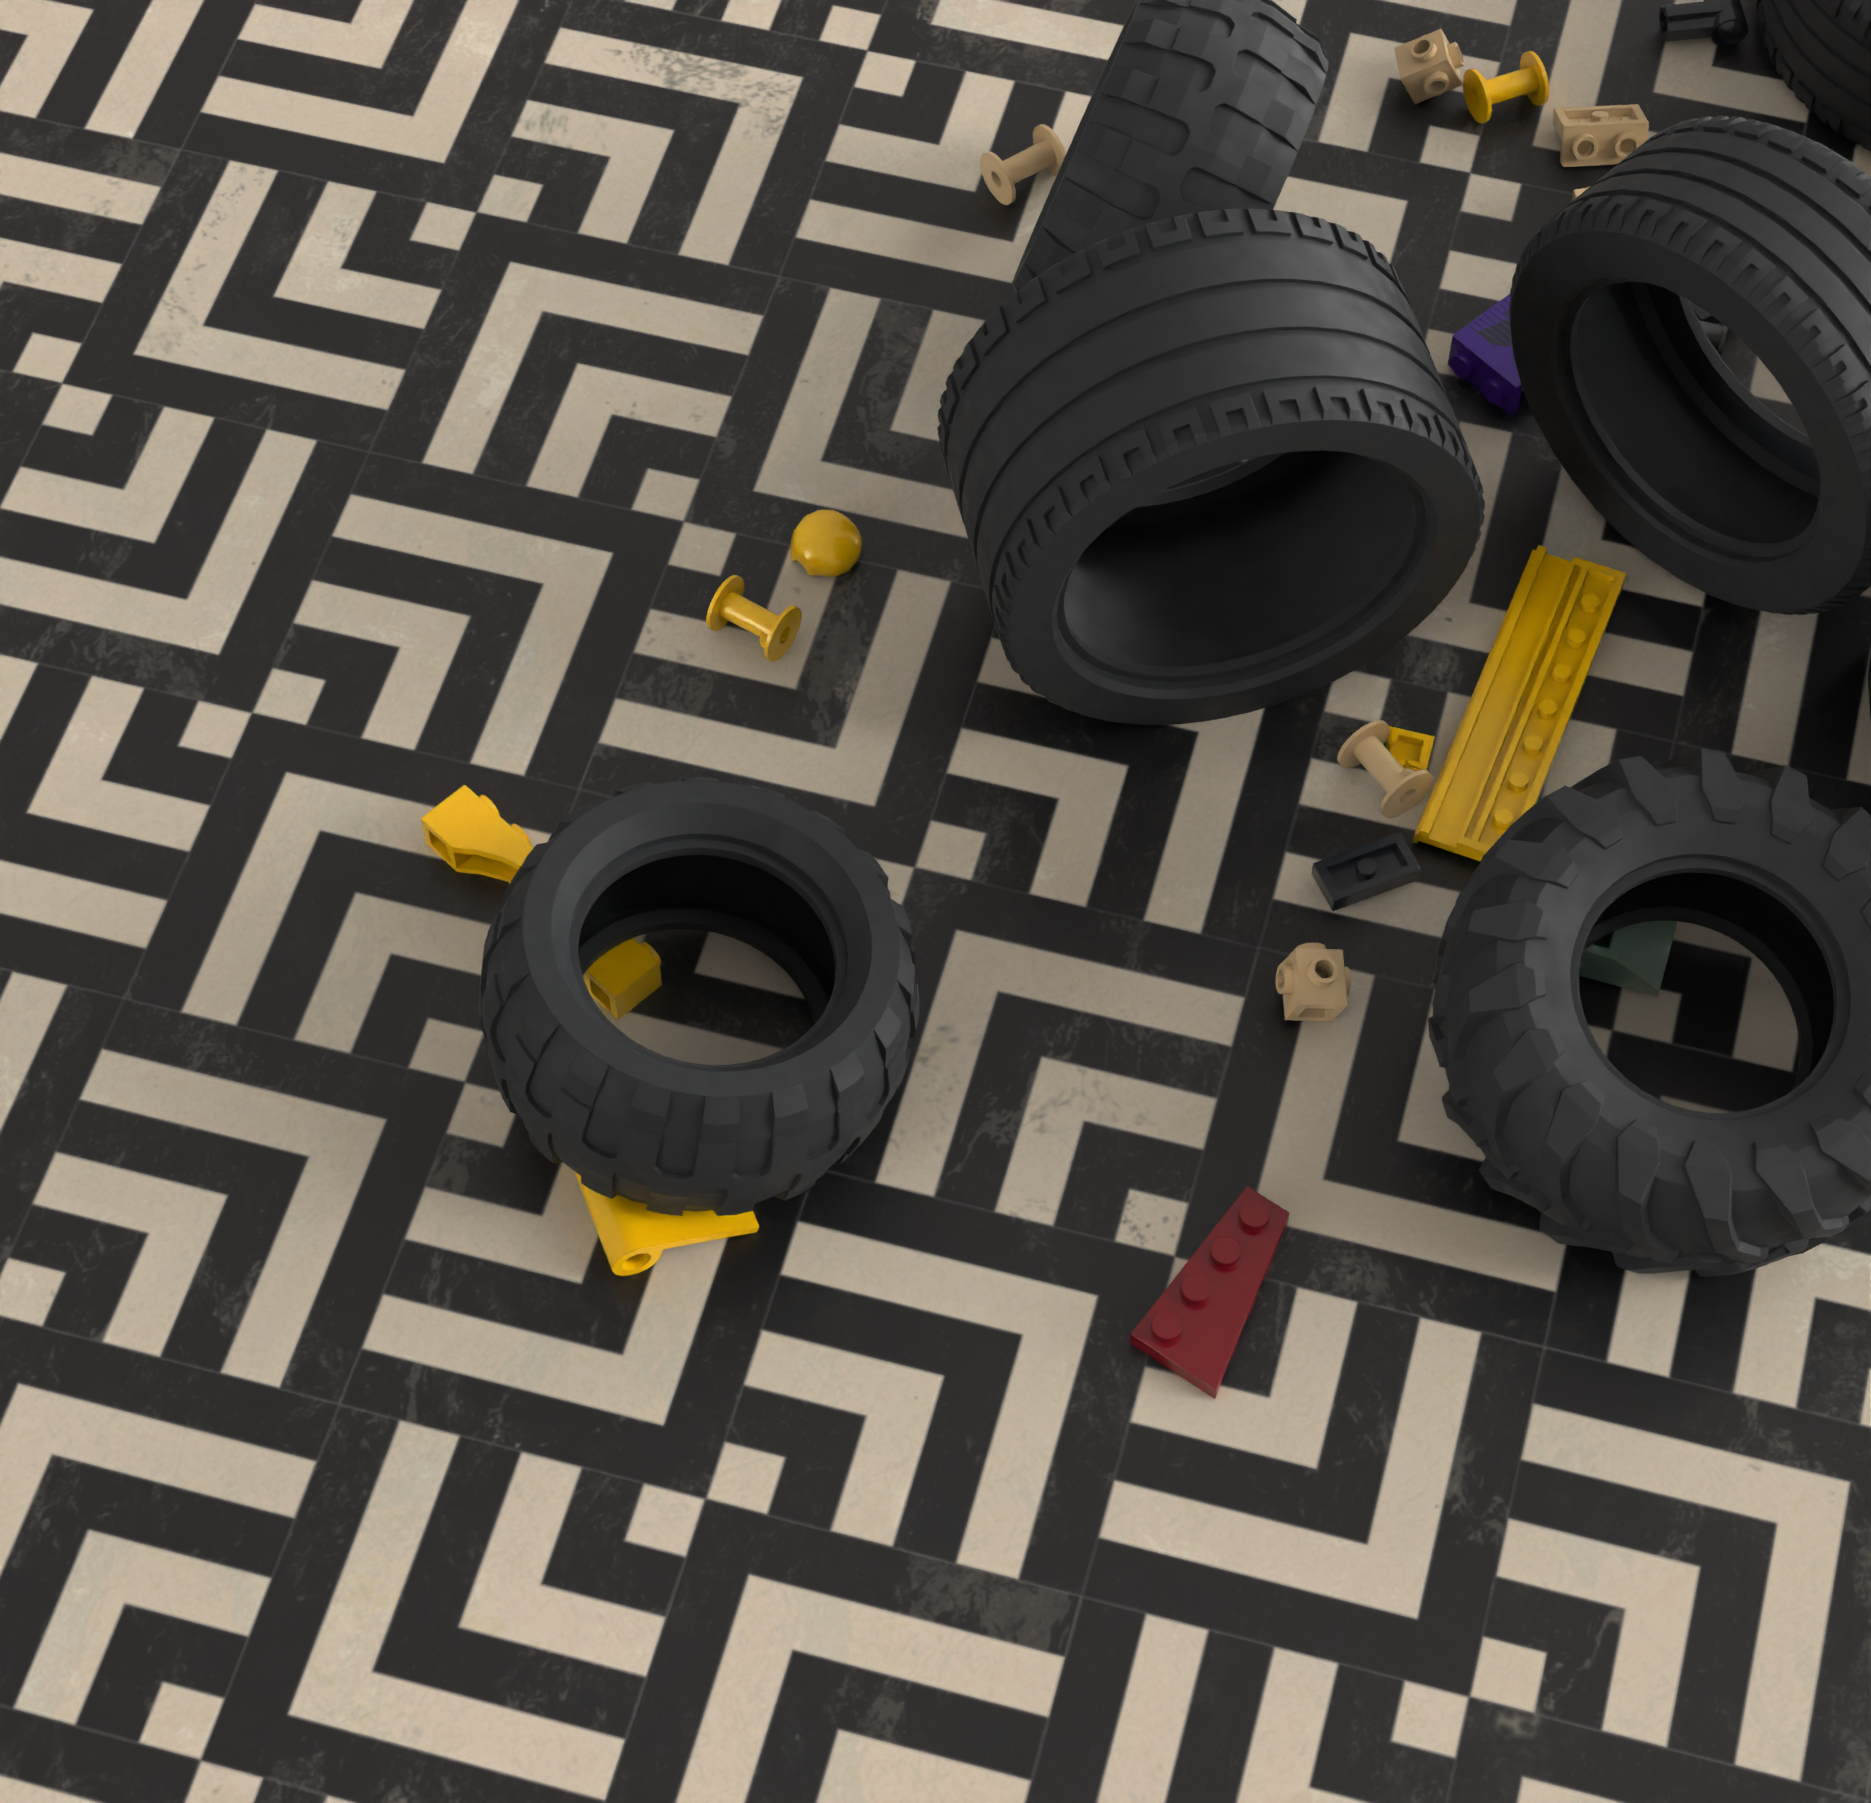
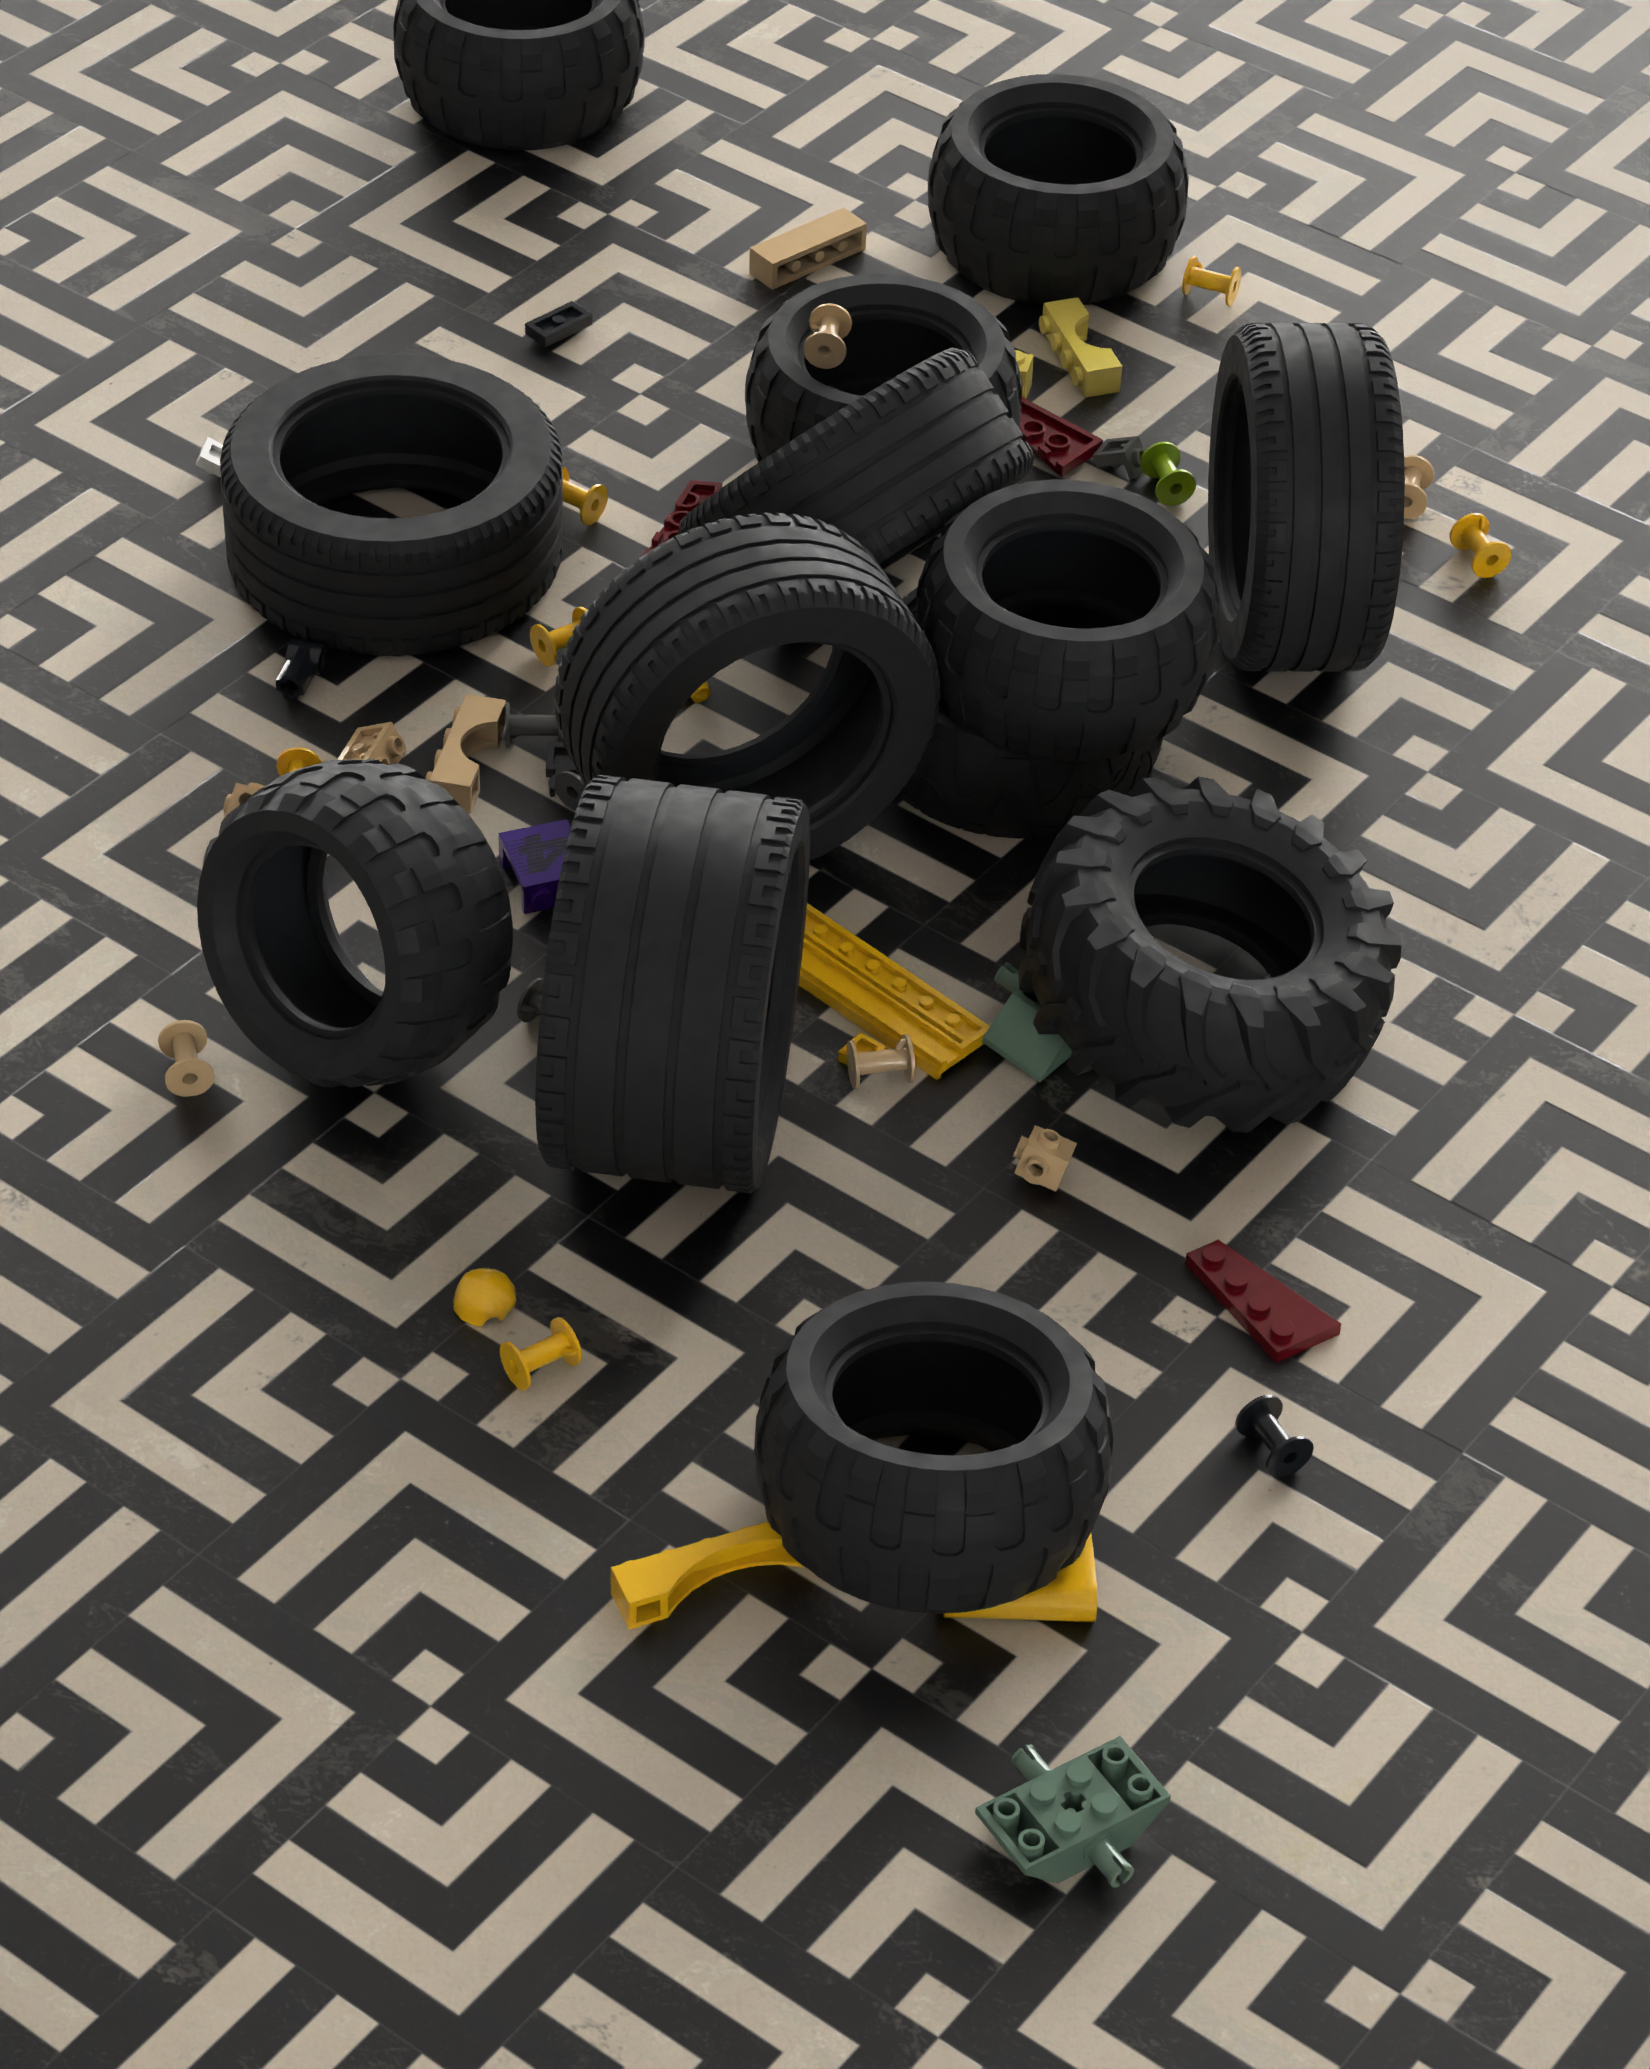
camera: 70 degrees left, 15 degrees down
(296, 1330) = (1076, 1812): none -> sand green slope
(996, 1349) = (1260, 1420): none -> black piece
(1366, 871) = (957, 1105): black plate -> none

